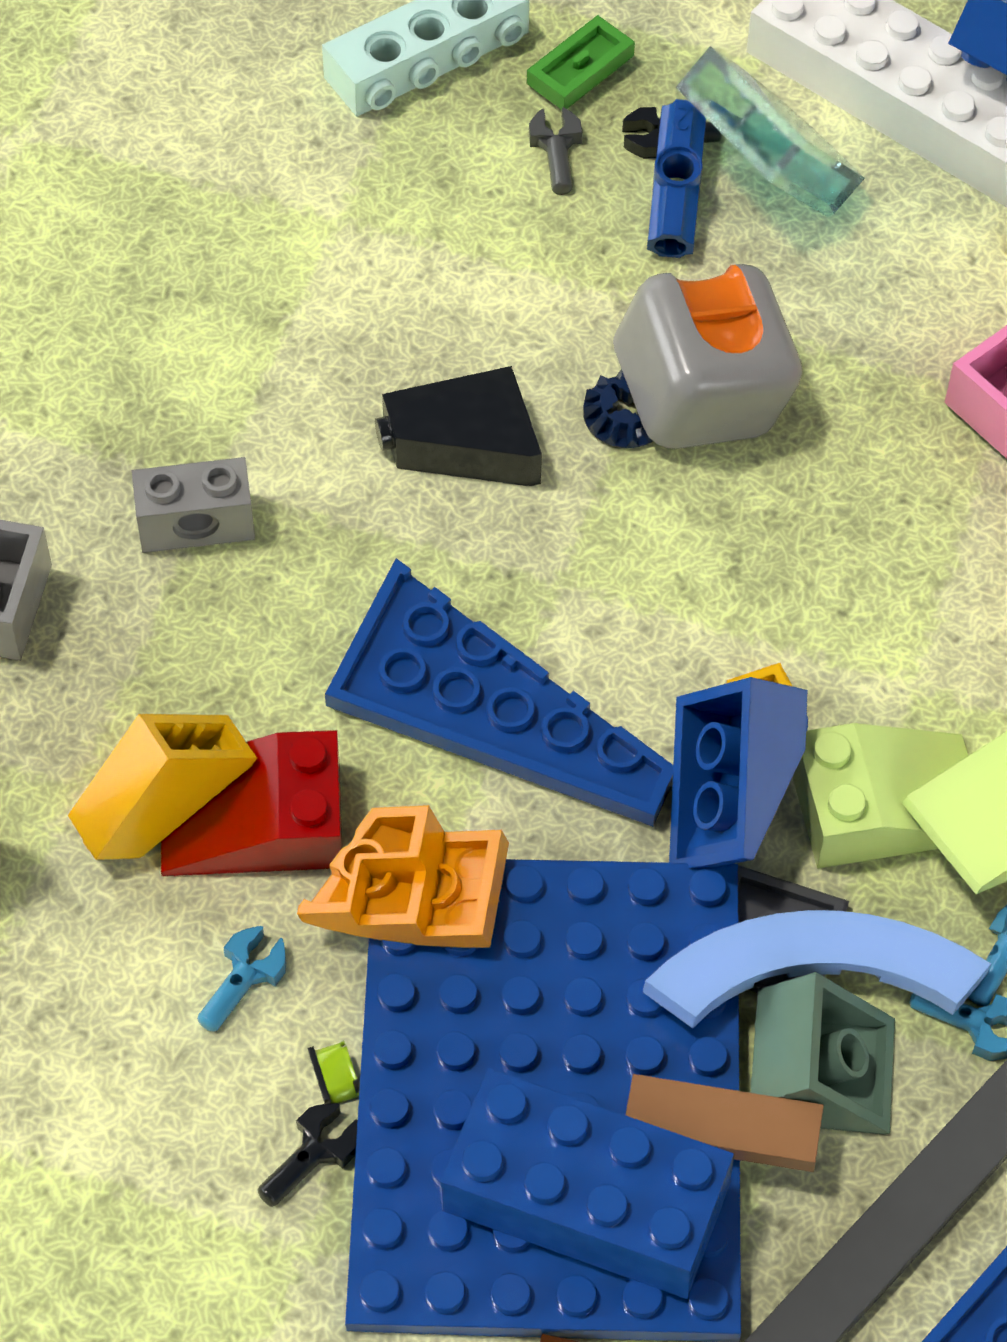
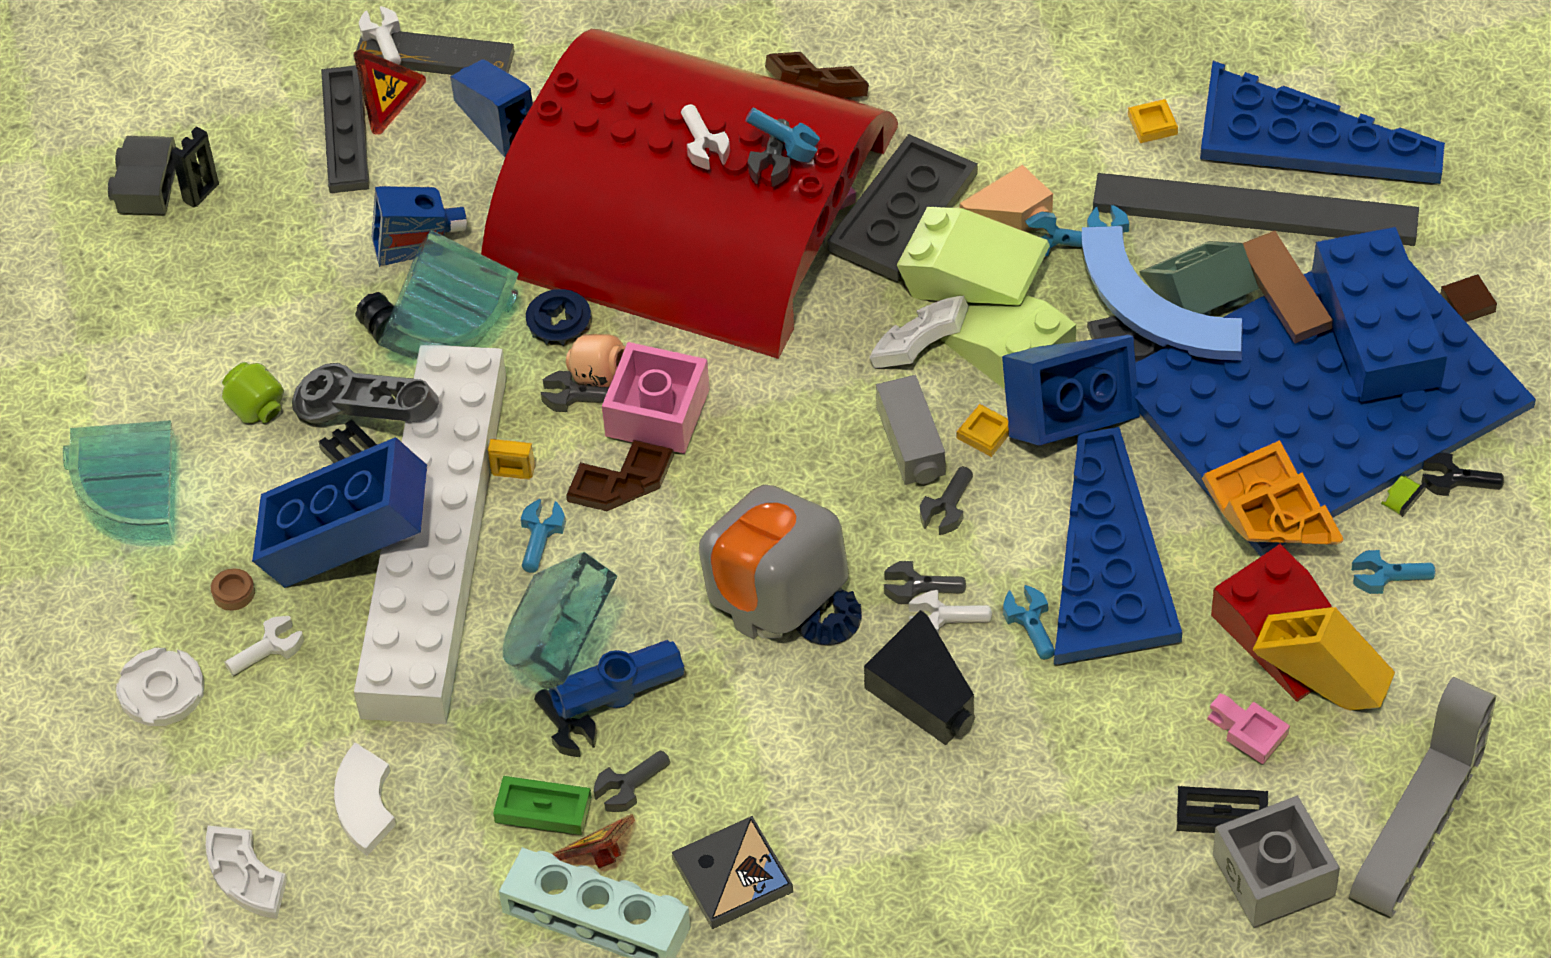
camera: 120 degrees left, 5 degrees down
(61, 640) = (1204, 818): none -> black tile
(156, 687) = (1250, 730): none -> bright pink plate
(193, 504) = (1110, 787): light grey brick -> none
(383, 170) = (732, 872): none -> tile
(473, 584) = (1030, 619): none -> dark azure bar
(502, 72) = (600, 844): none -> clear red piece
(542, 511) = (945, 614): none -> white bar
(600, 512) = (918, 583): none -> dark grey bar
(689, 600) = (947, 503): none -> dark grey bar
(808, 609) = (910, 430): none -> light grey brick
(931, 230) = (539, 532): none -> dark azure bar
(942, 317) = (607, 489): none -> reddish brown tile
(955, 704) = (933, 322): none -> white tile

